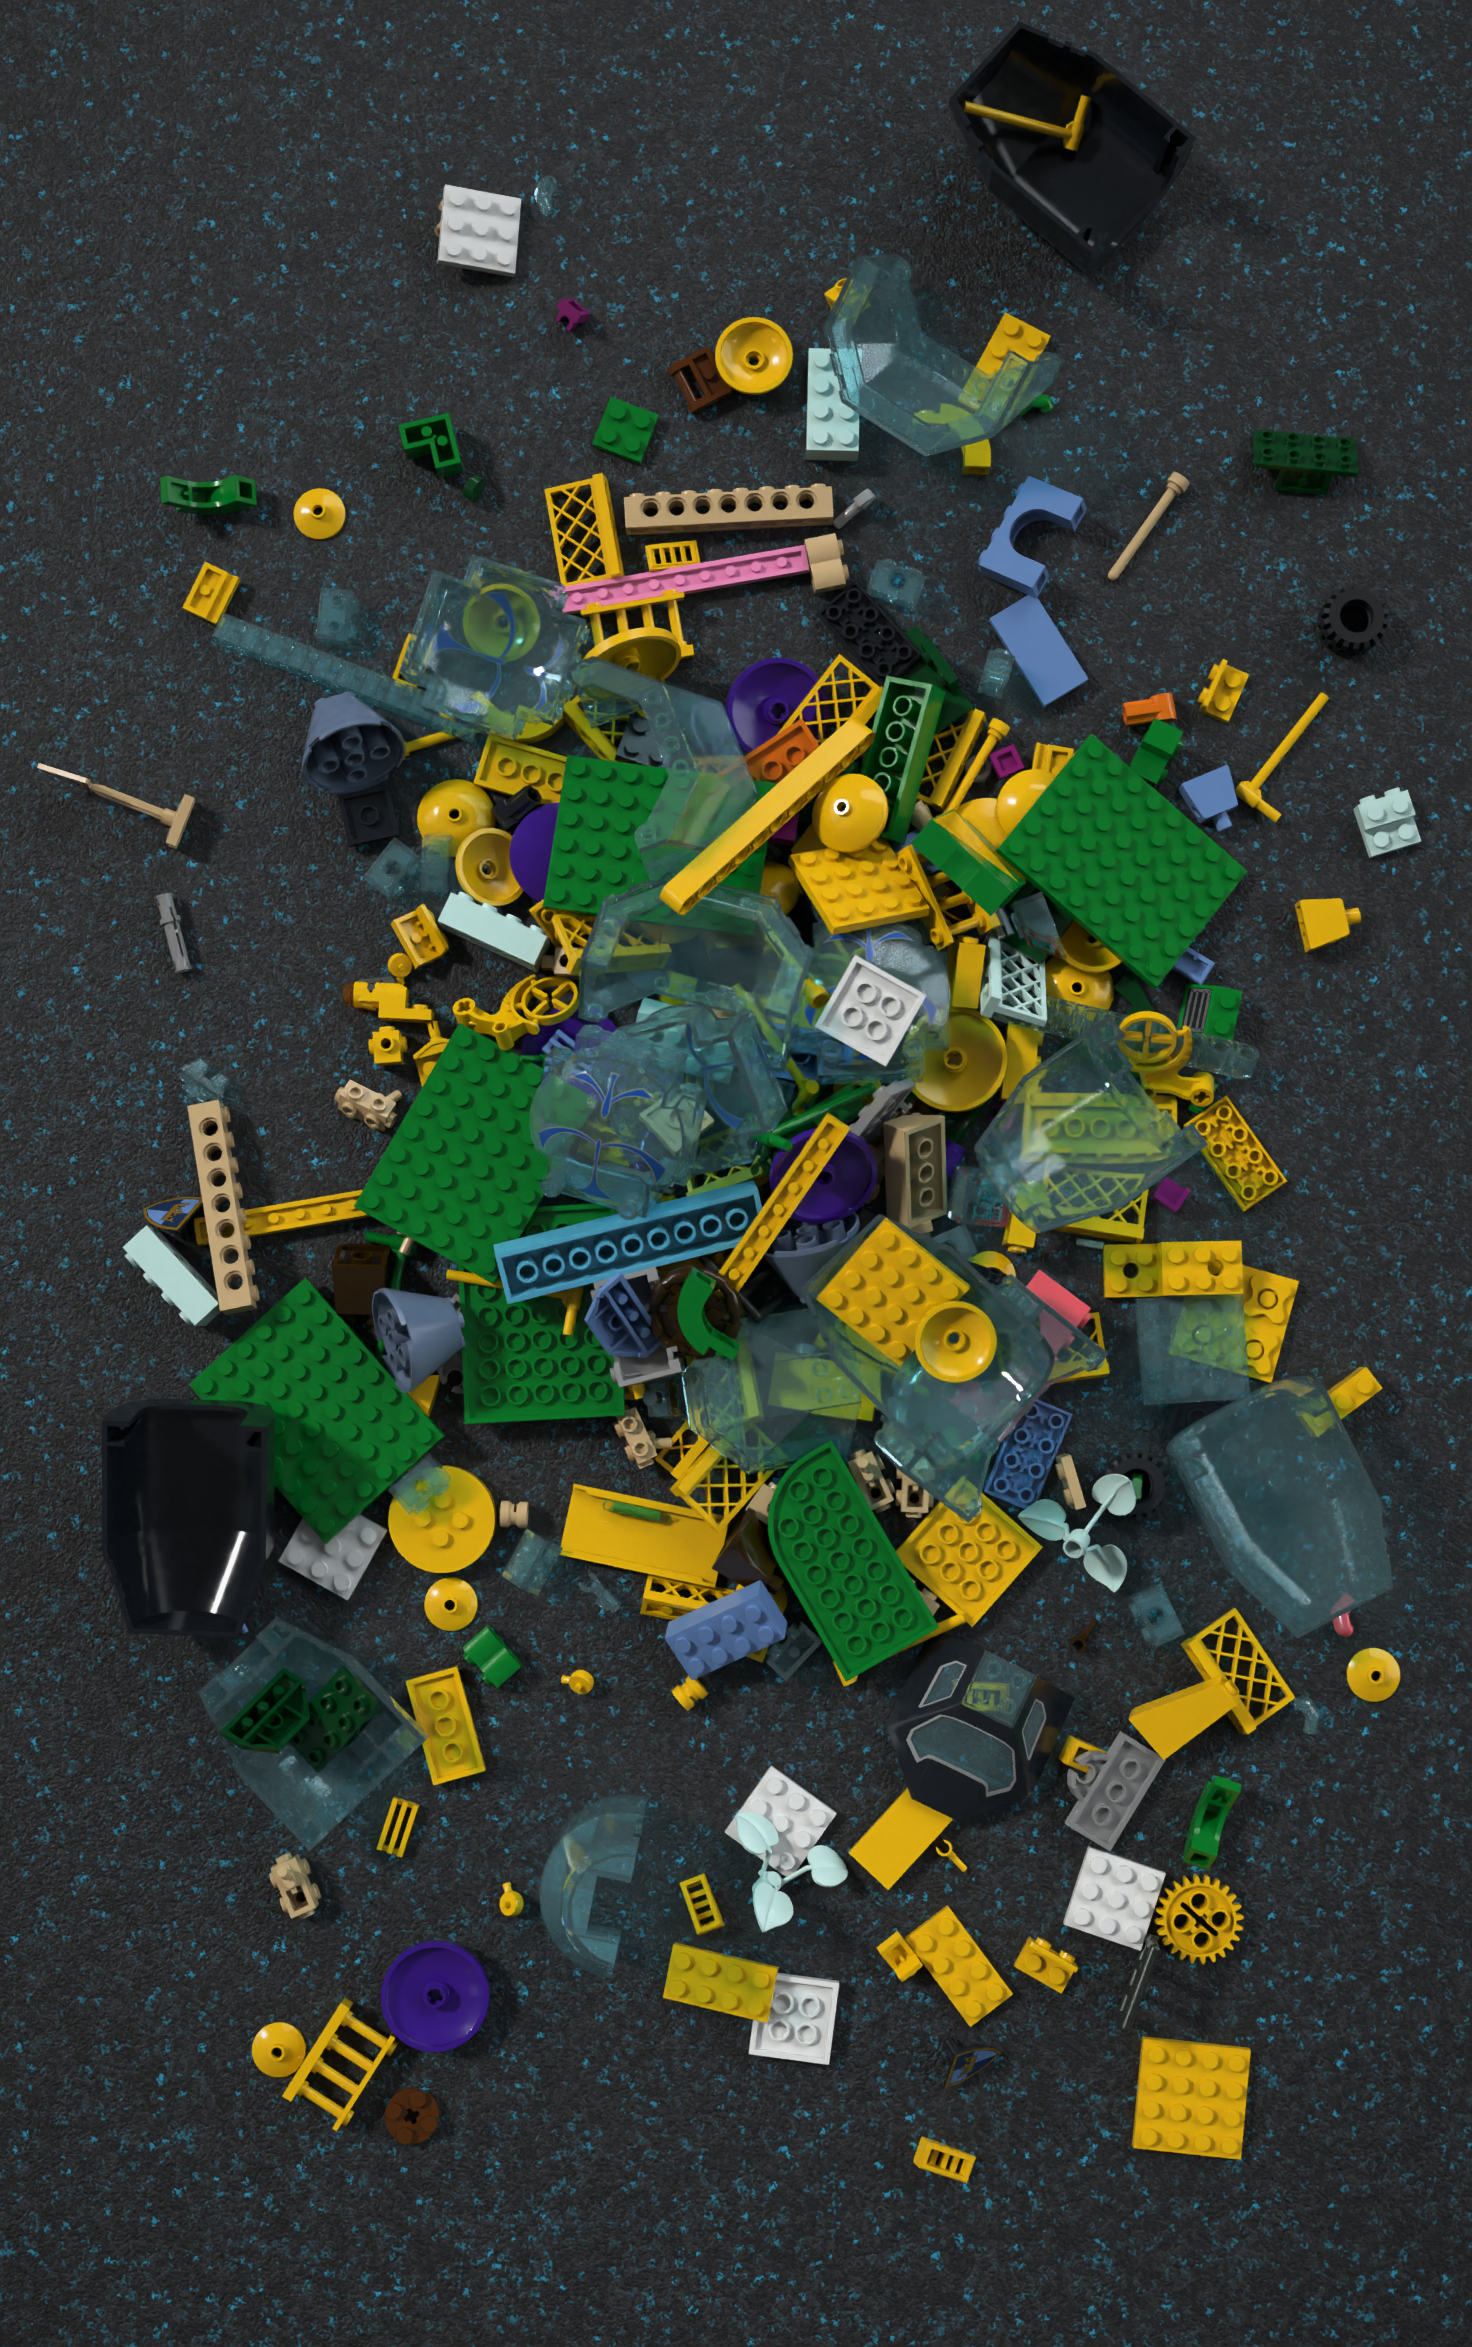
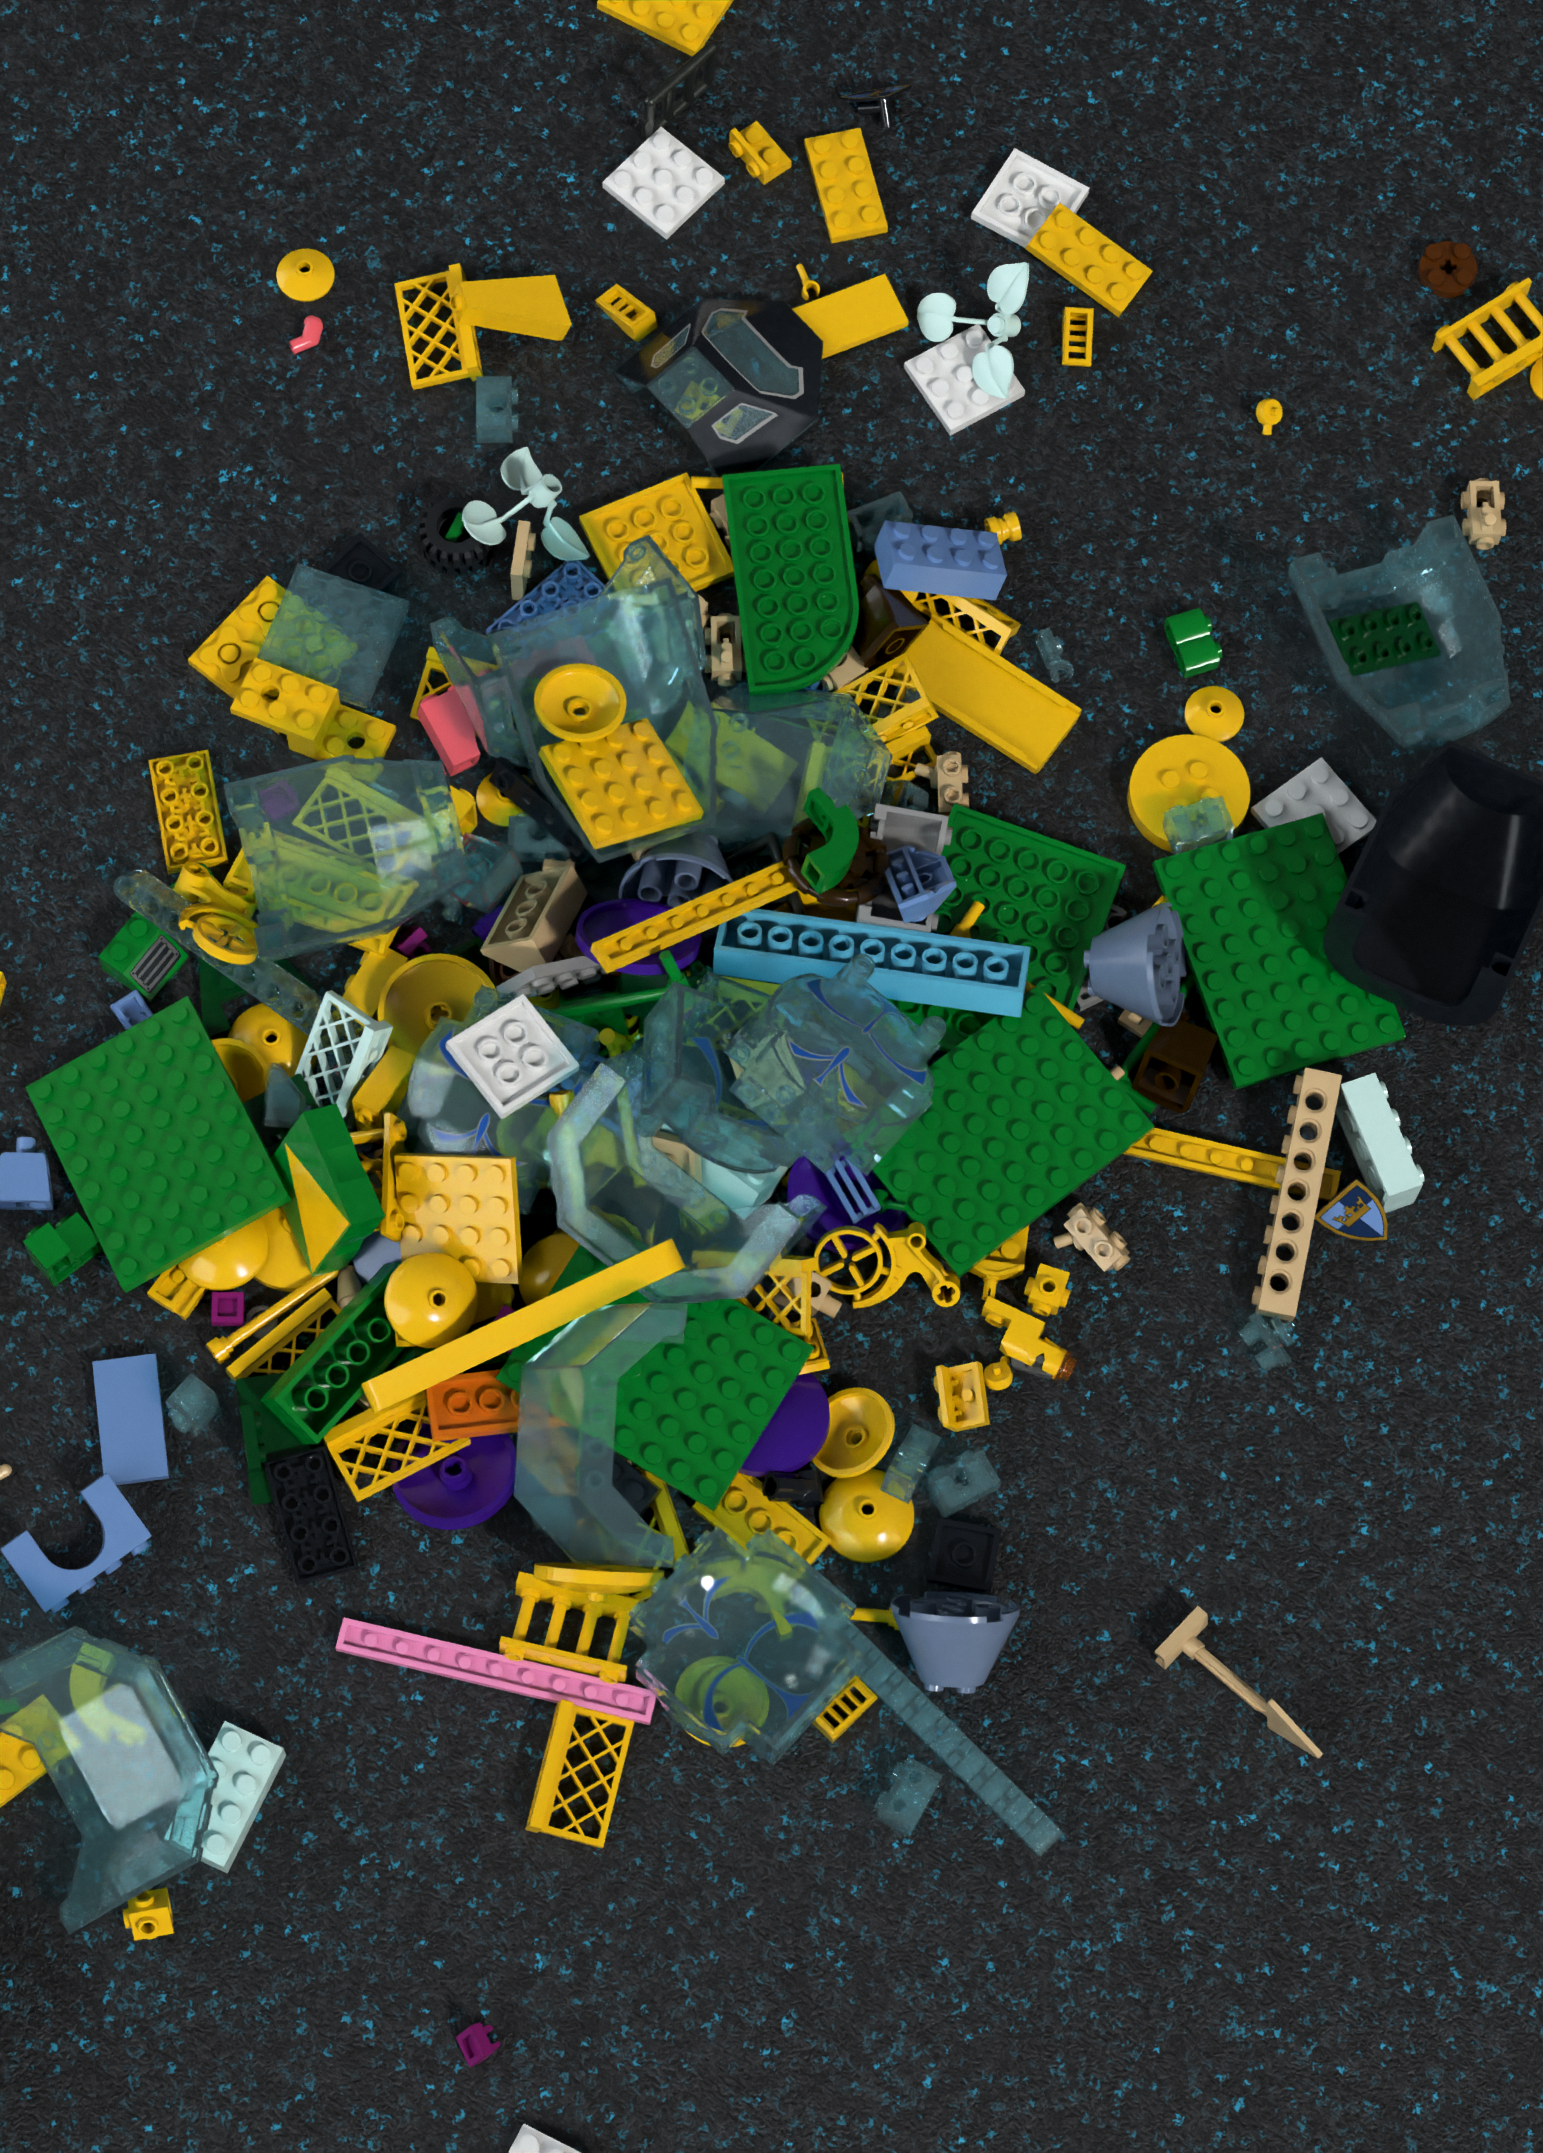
camera: 160 degrees left, 15 degrees down
(176, 943) = (1236, 1530): light grey pin -> none
(211, 593) = (1042, 1889): yellow plate -> none
(215, 497) = (997, 2003): green arch -> none
(271, 1716) = (1444, 655): dark green wedge -> none
(323, 525) = (872, 1951): yellow dish -> none
(390, 1848) = (1370, 511): yellow tile -> none
(433, 437) = (703, 1956): green brick -> none
(435, 1996) = (1380, 357): dark purple dish -> none
(445, 1716) = (1266, 601): yellow plate -> none
(474, 488) = (684, 1881): dark green tile -> none
(493, 931) = (877, 1359): light aqua brick -> none
(514, 1514) = (1116, 772): tan wheel -> none
(532, 1562) = (1112, 712): clear light blue brick -> none
(579, 1681) = (1112, 584): yellow piece -> none
(589, 1845) = (1171, 385): clear light blue windscreen -> none
(625, 431) = (478, 1877): green plate -> none
(636, 1511) = (982, 717): bright green piece -> none
(663, 548) = (511, 1720): yellow slope -> none
(705, 372) = (354, 1897): reddish brown plate -> none
(741, 518) = (299, 1679): tan brick -> none
(750, 340) = (288, 1867): yellow dish -> none
(825, 563) = (321, 1617): tan brick -> none
(862, 501) = (248, 1668): light grey bar -> none
(900, 1956) = (900, 212): yellow bracket -> none
(905, 596) = (245, 1542): clear light blue brick -> none
(926, 2159) = (952, 41): yellow slope -> none
(1084, 1635) = (581, 422): dark brown hand -> none
(1111, 1788) = (619, 273): light grey plate -> none
(1144, 711) = (33, 1298): orange piece -> none
(1208, 1821) = (540, 205): green arch -> none
(1214, 1901) = (565, 138): yellow gear -> none
(1287, 1502) = (317, 442): clear light blue windscreen -> none
(1310, 1712) = (386, 264): clear light blue arm -> none
(1353, 1391) = (207, 527): yellow brick -> none

